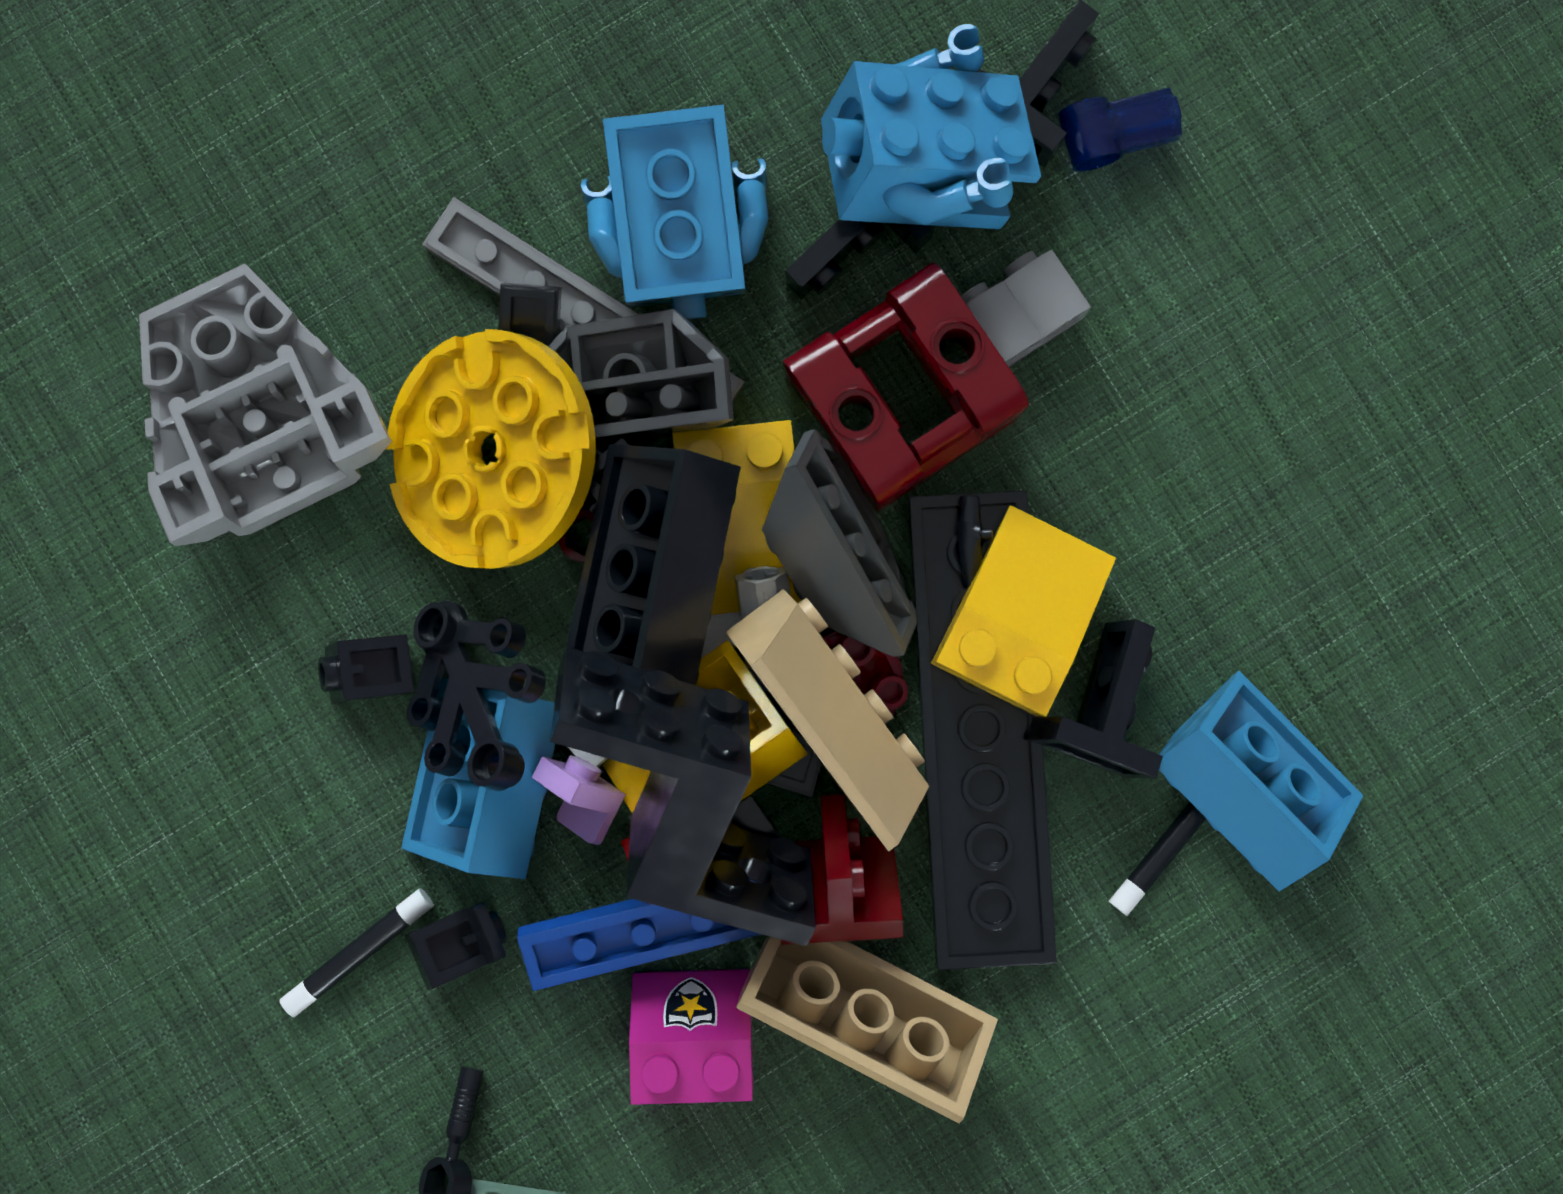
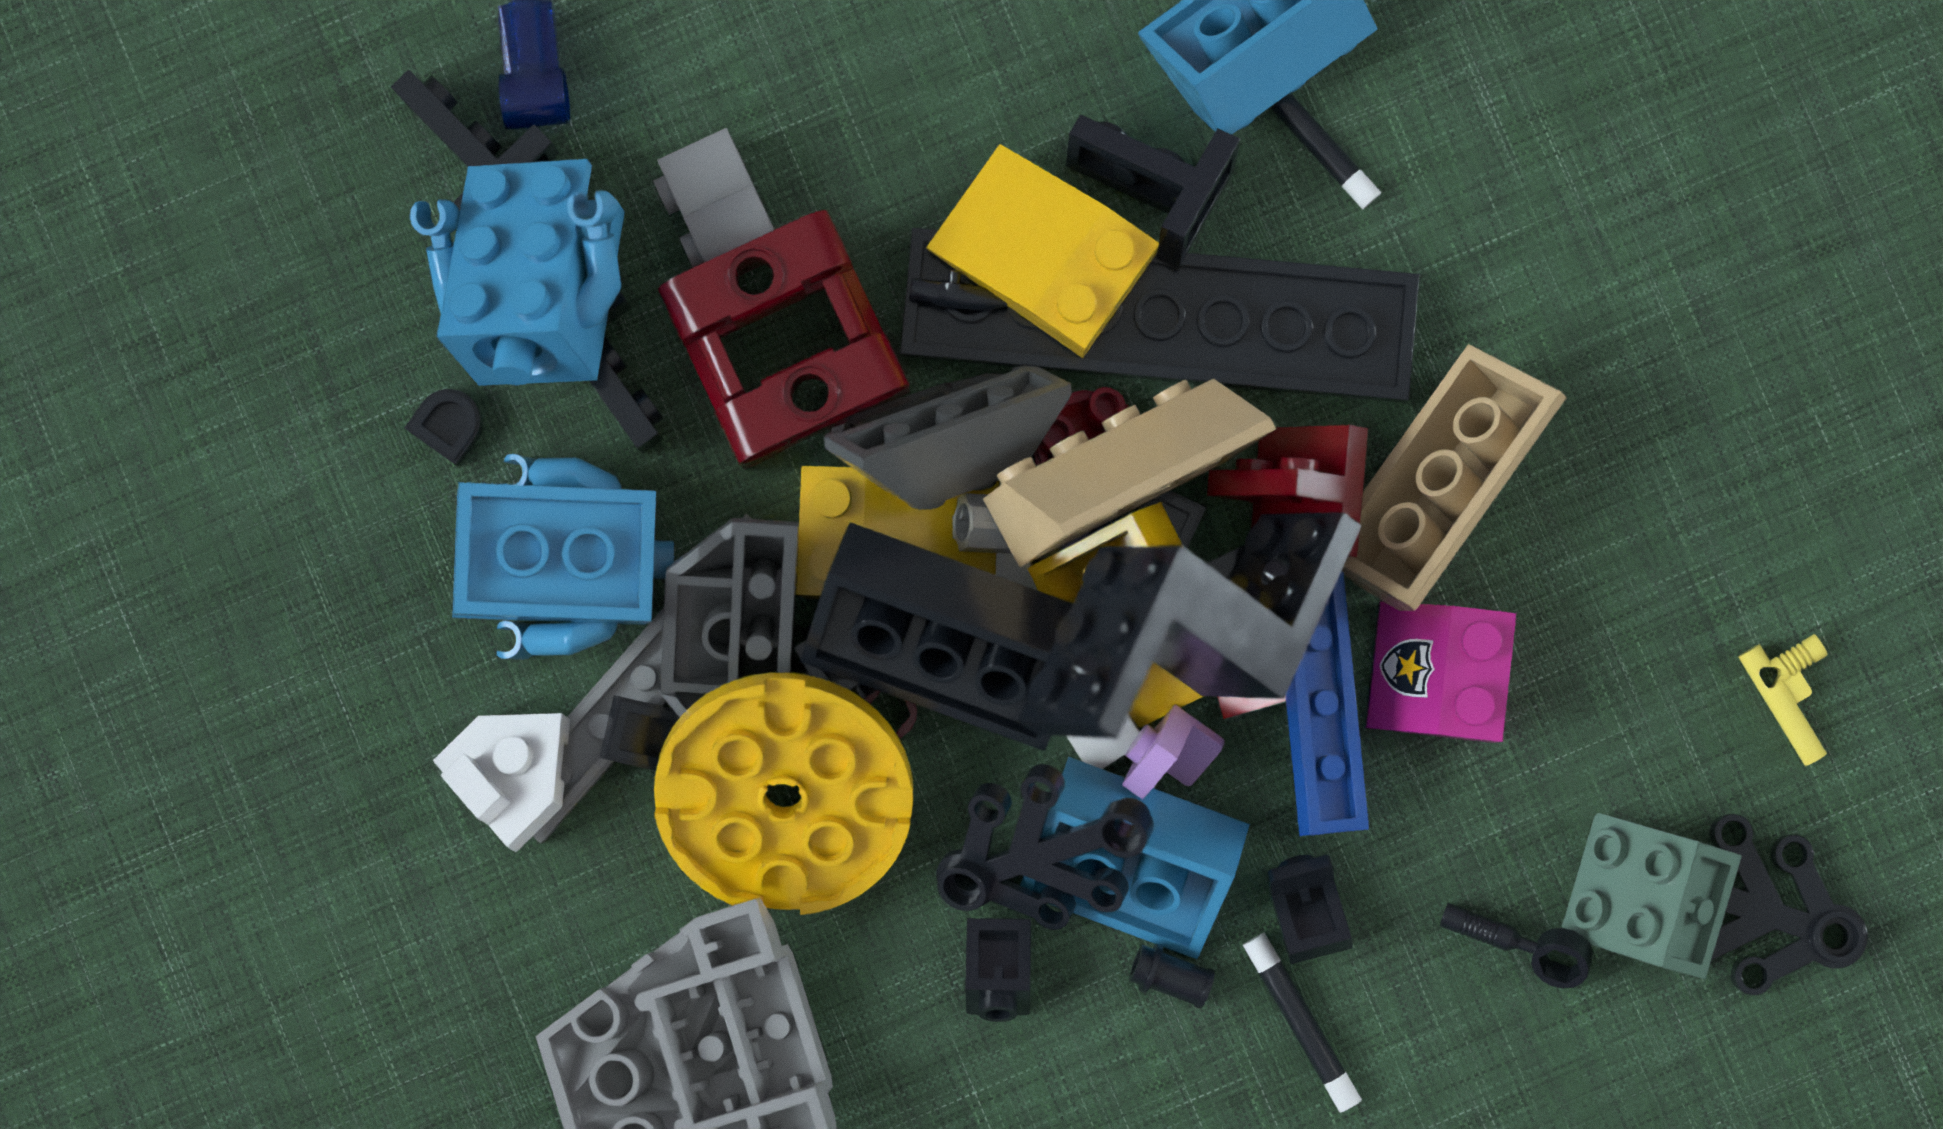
camera: 80 degrees left, 0 degrees up
(380, 827) = (1171, 975): none -> black pin
(477, 203) = (509, 771): none -> white plate
(785, 106) = (448, 423): none -> black tile

